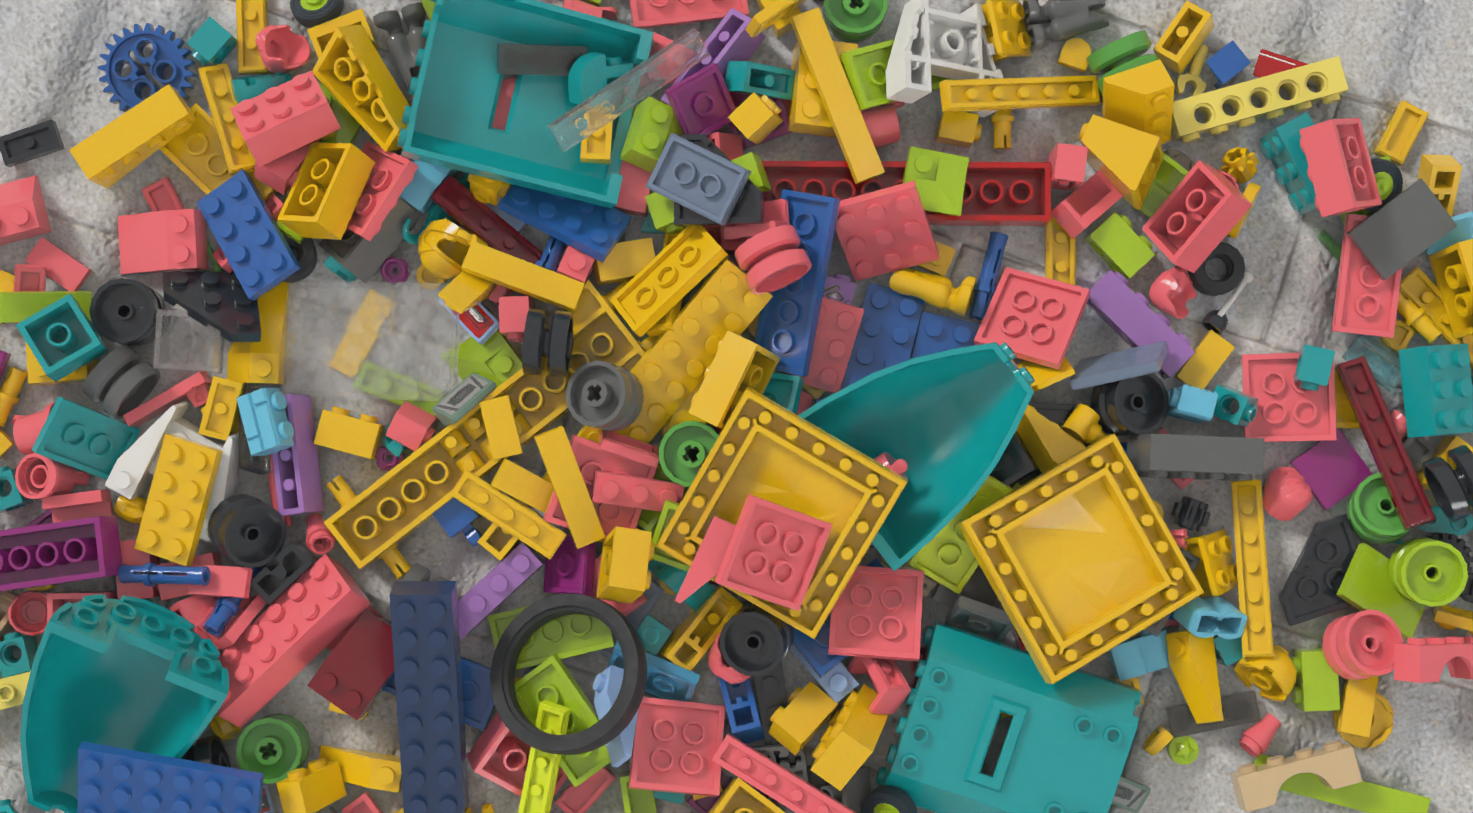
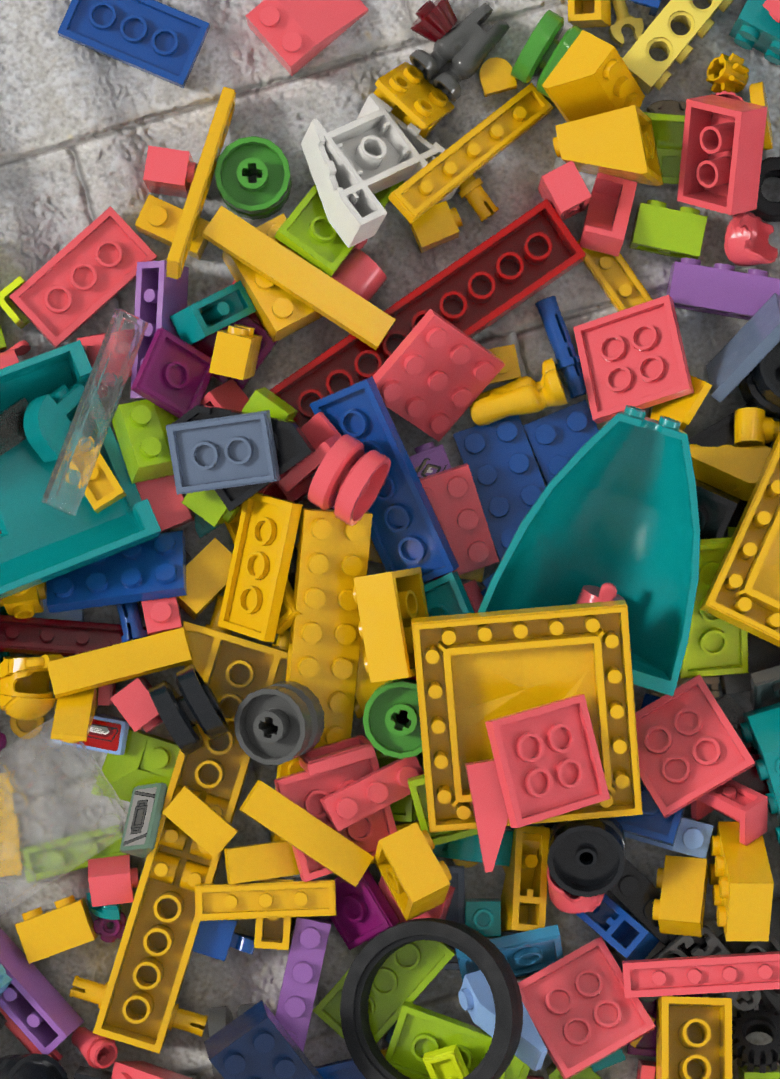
camera: 35 degrees left, 0 degrees up
(938, 179) = (450, 290): lime plate -> none

